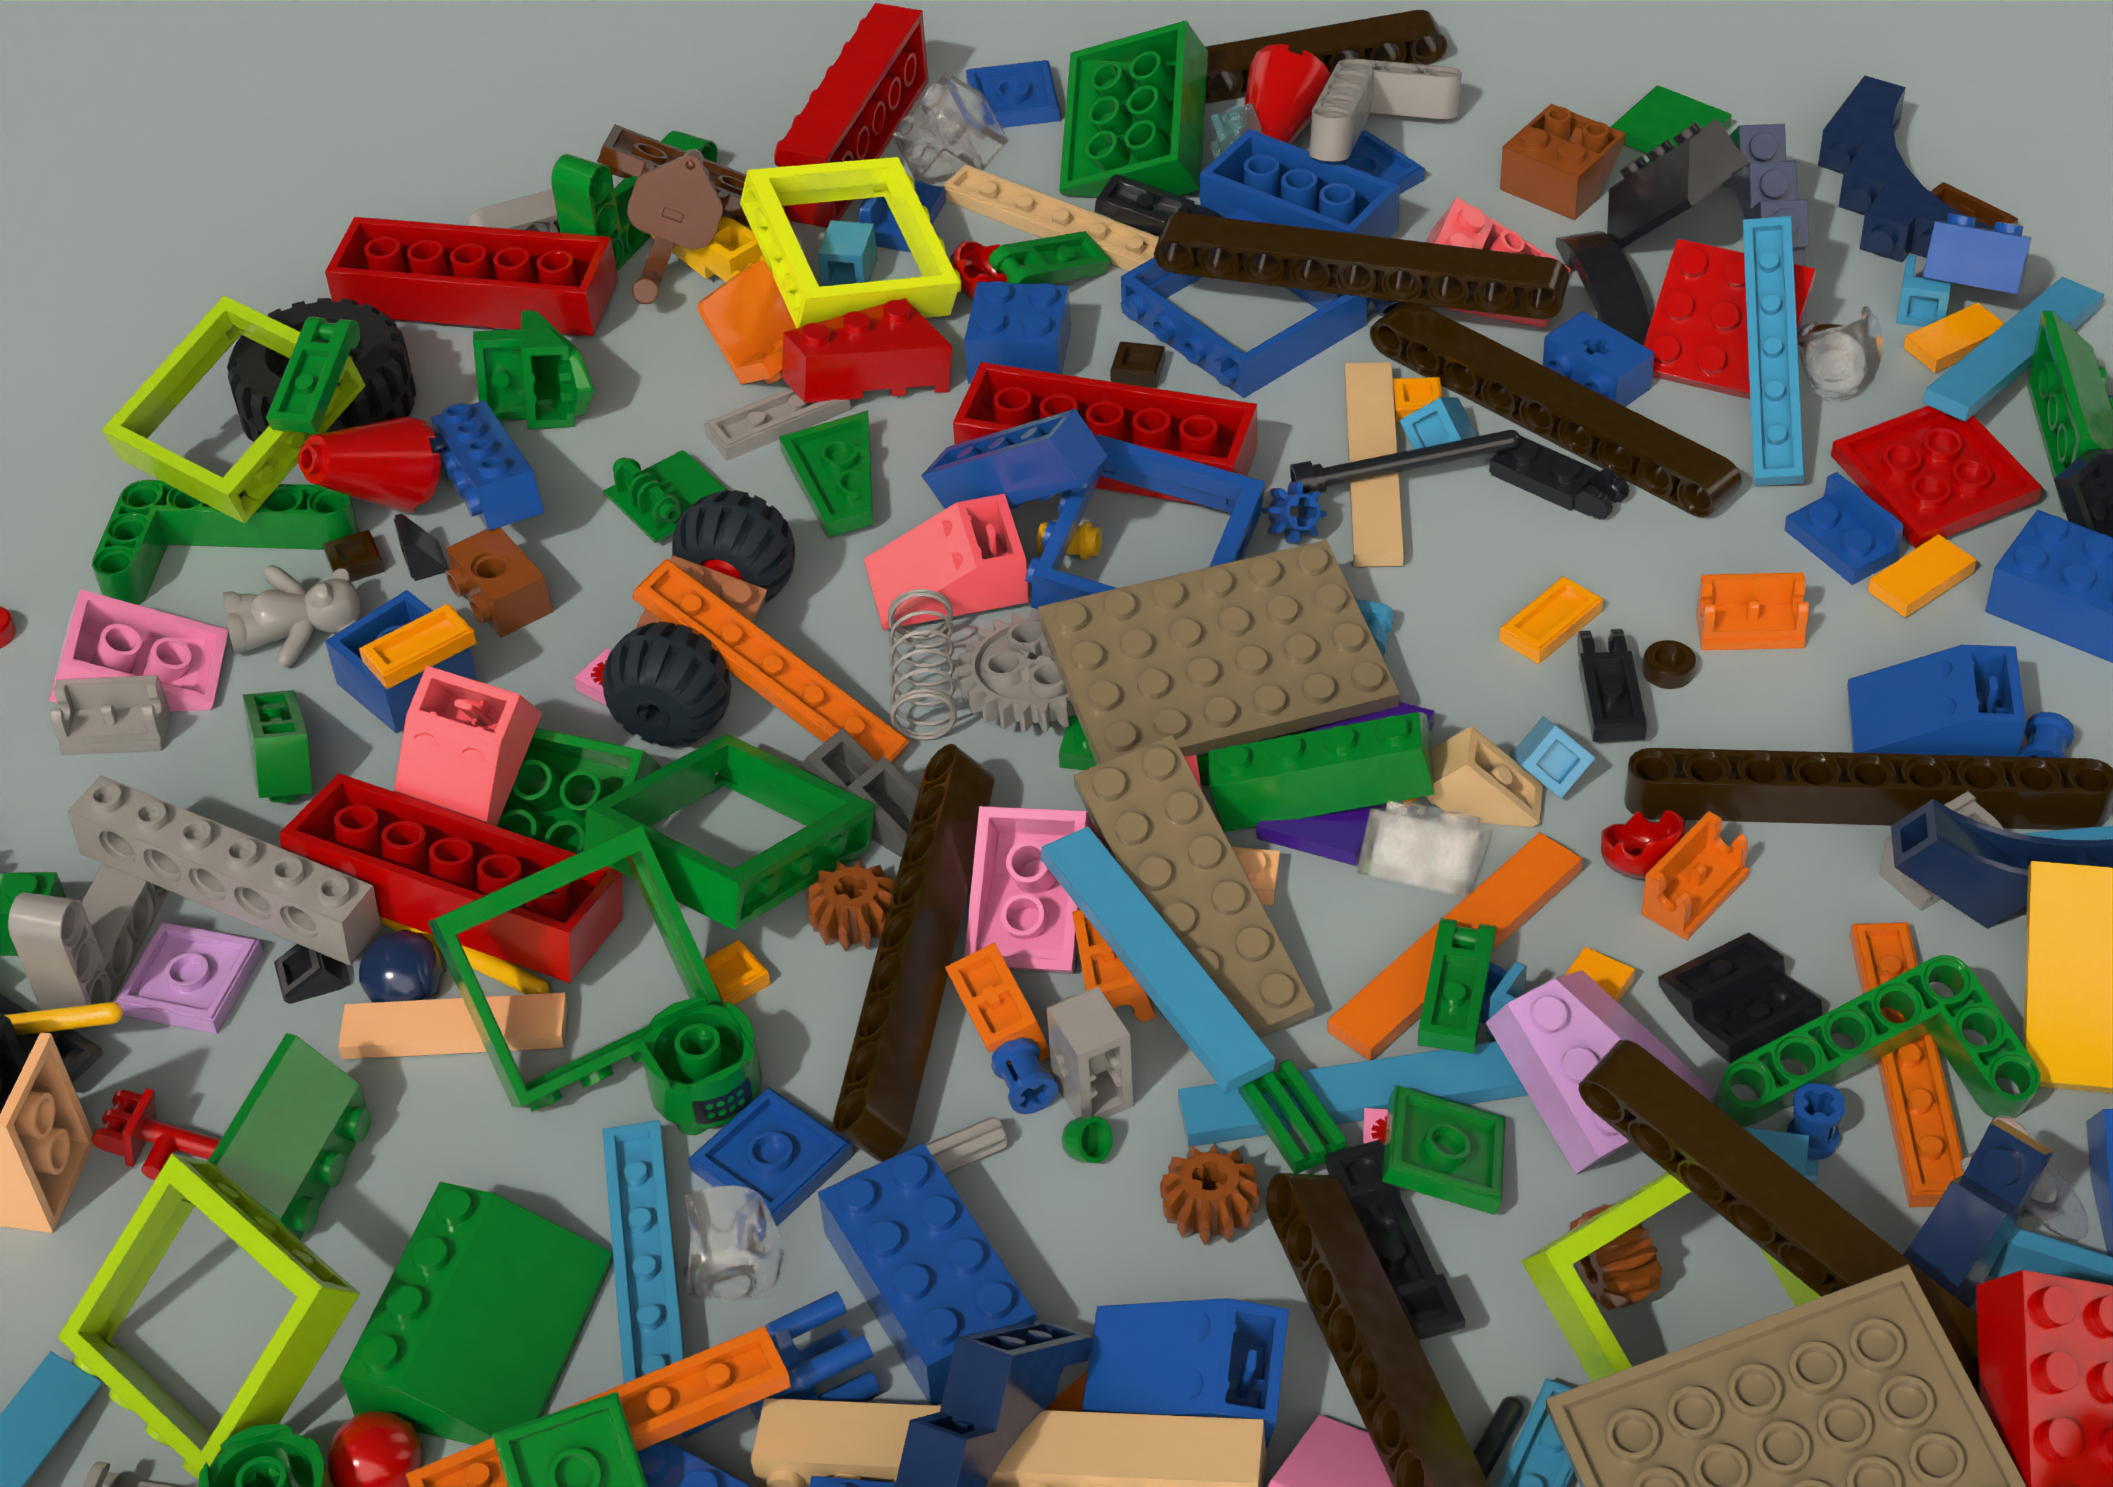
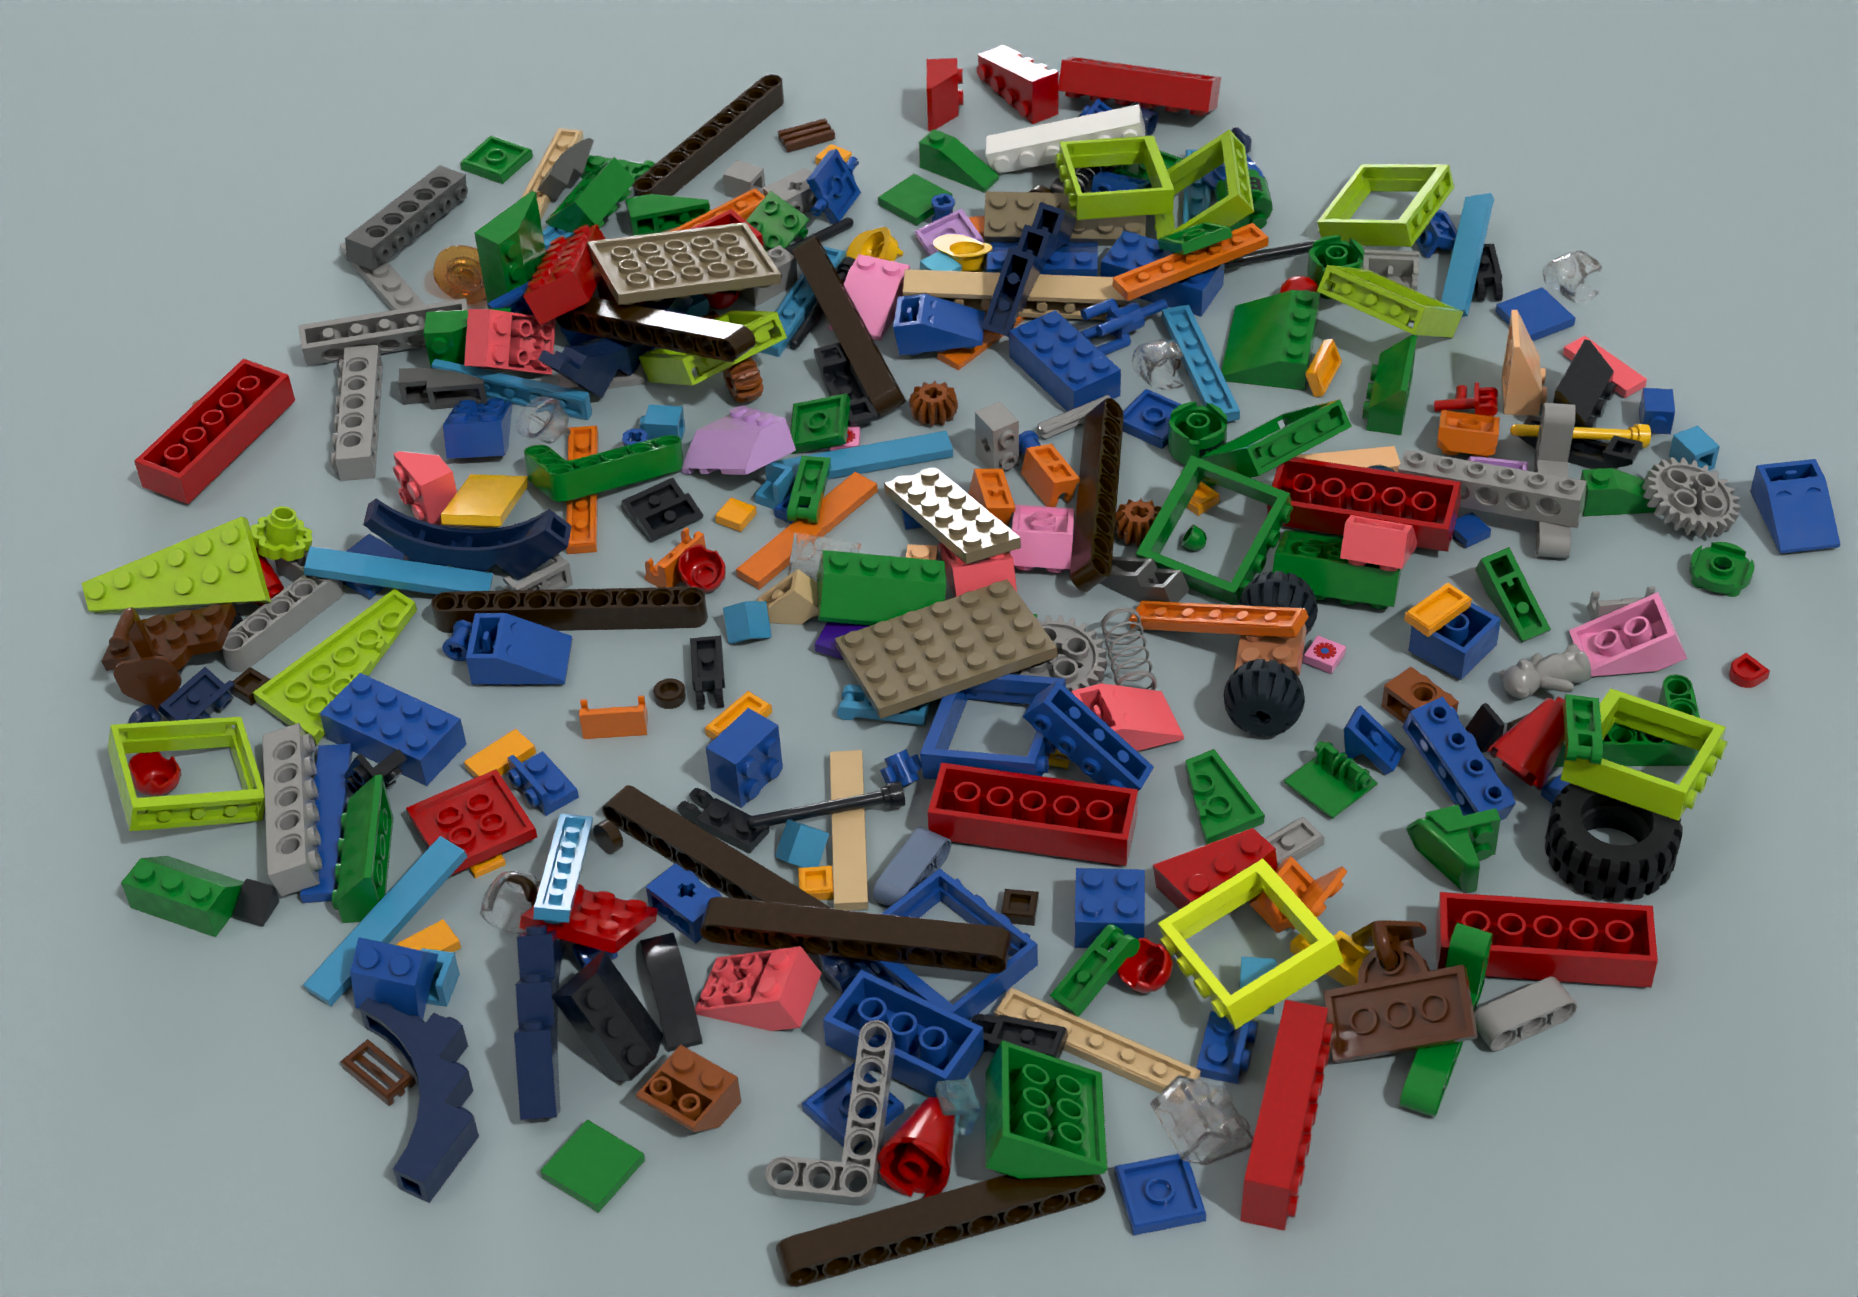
camera: 175 degrees right, 0 degrees up
(190, 1056) = (1467, 434): none -> orange slope
(395, 1234) = (1323, 367): none -> light orange tile
(600, 519) = (1369, 737): none -> blue slope
(1158, 960) = (968, 473): dark azure tile -> none
(1289, 390) = (913, 864): none -> sand blue beam
(1310, 1105) = (899, 430): green tile -> none
(1531, 508) = (744, 758): none -> blue brick
(1726, 441) = (608, 836): none -> dark brown tile

